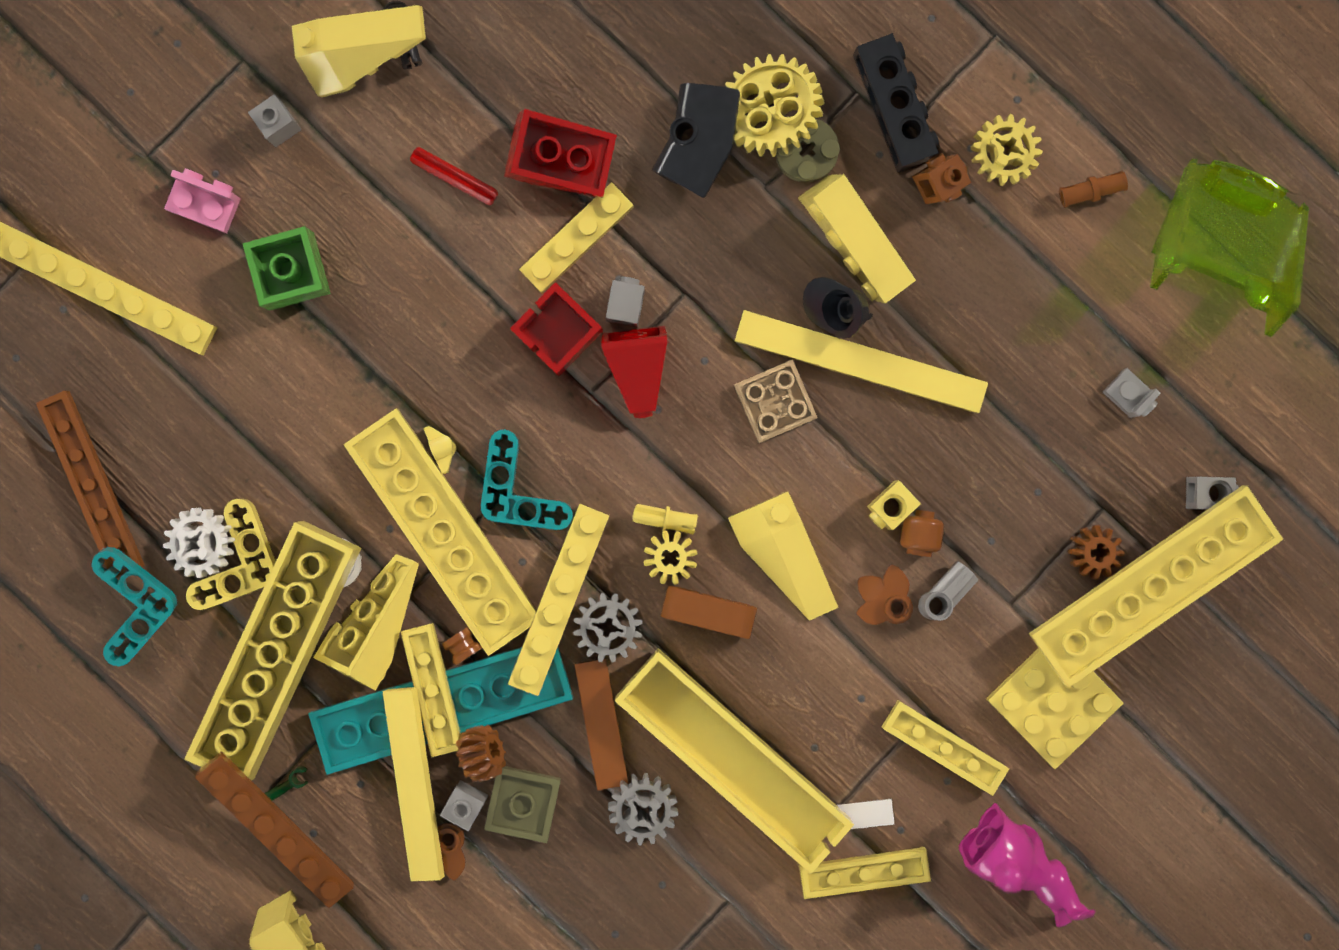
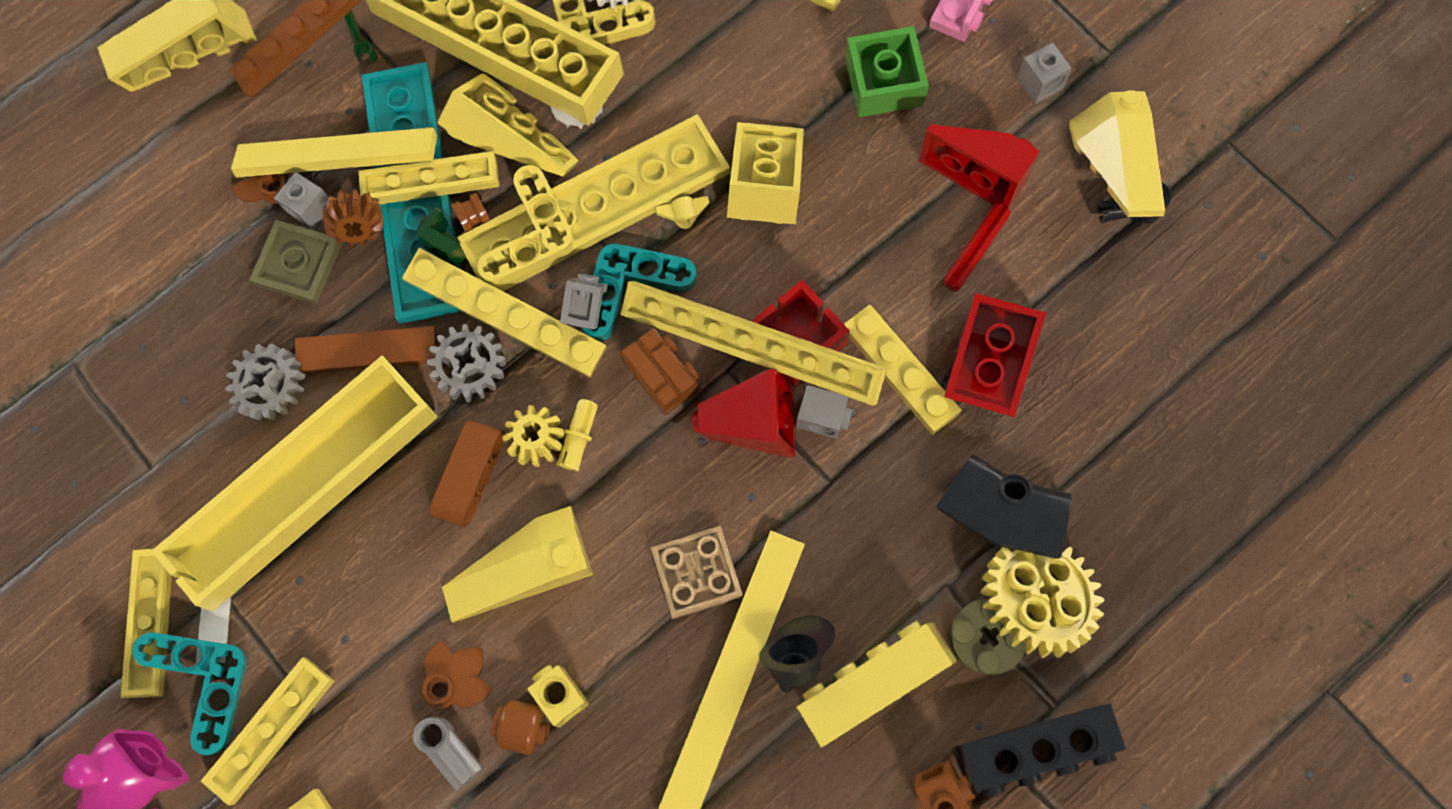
camera: 105 degrees right, 15 degrees down
(378, 167) = (980, 160): none -> red slope
(396, 374) = (765, 173): none -> light yellow slope
(486, 577) = (540, 240): none -> light yellow beam
(500, 664) = (438, 241): none -> dark green bracket
(543, 527) = (582, 301): none -> light grey bracket
(573, 368) = (754, 342): none -> light yellow tile
(600, 451) = (660, 371): none -> dark orange brick
(898, 810) = (208, 667): none -> teal beam

